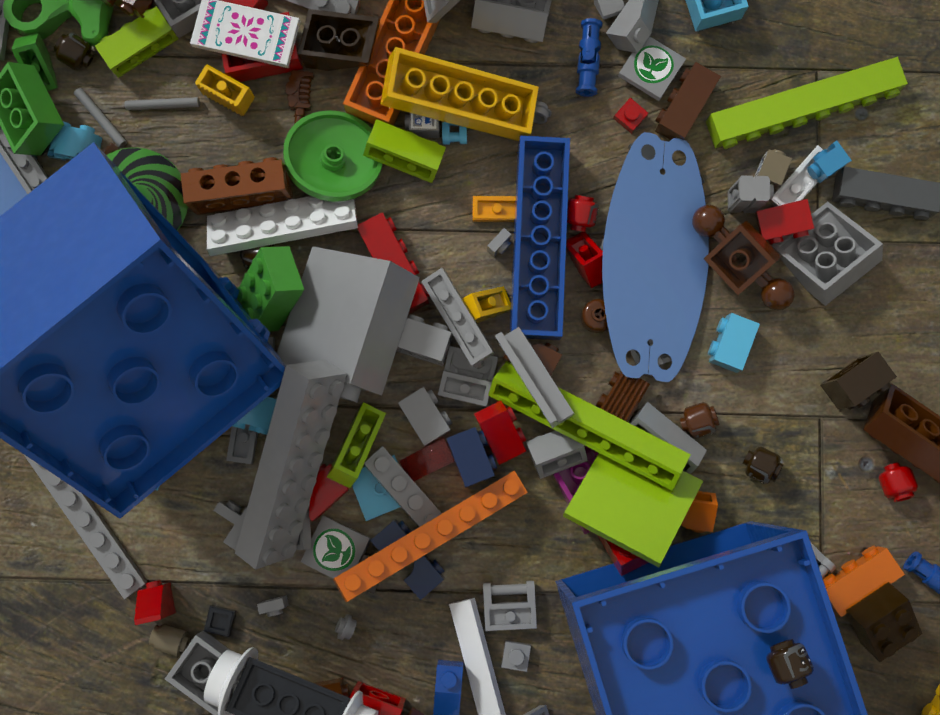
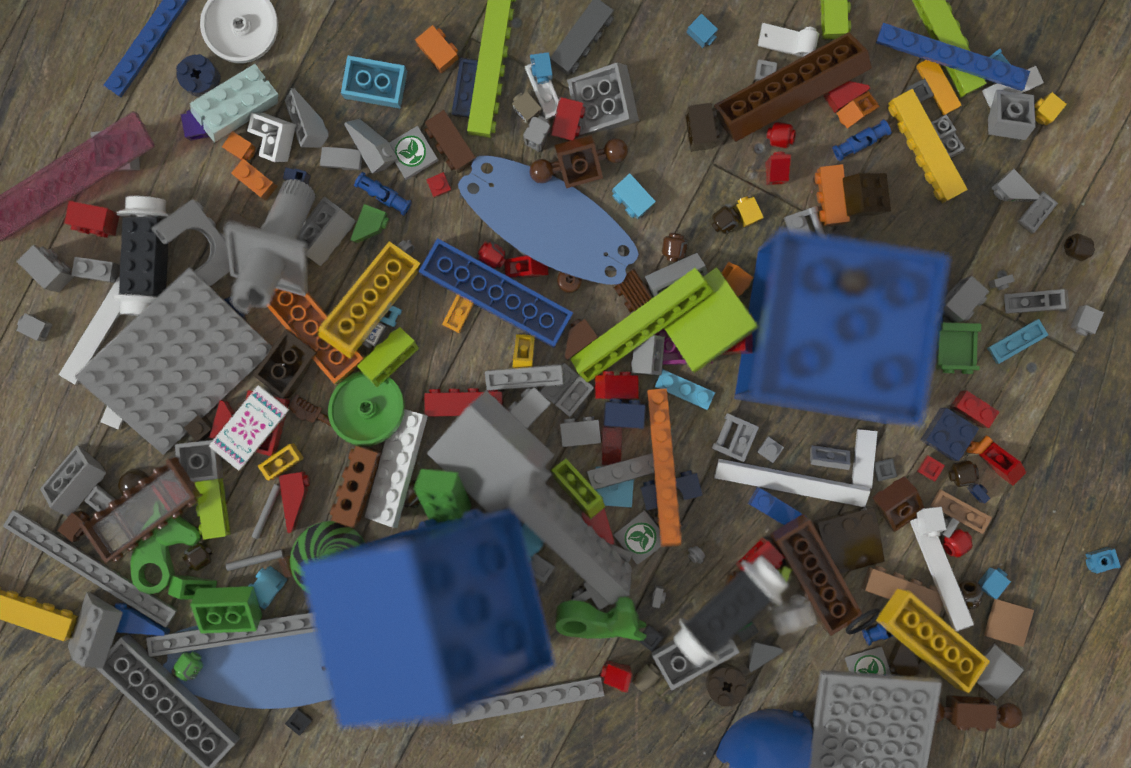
camera: 65 degrees left, 5 degrees up
(194, 123) = (293, 492): none -> red slope
(201, 531) = (585, 621): none -> bright green animal
(499, 243) = (485, 321): light grey plate -> none
(535, 377) = (592, 345): light grey fence -> none
(537, 516) = (685, 389): none -> medium azure plate
(546, 58) = (369, 223): none -> bright green slope
(756, 89) = (464, 87): none -> dark blue tile
(784, 38) = (437, 48): none -> orange brick
(787, 488) = (748, 211): none -> yellow brick
(857, 497) = (778, 168): none -> red slope

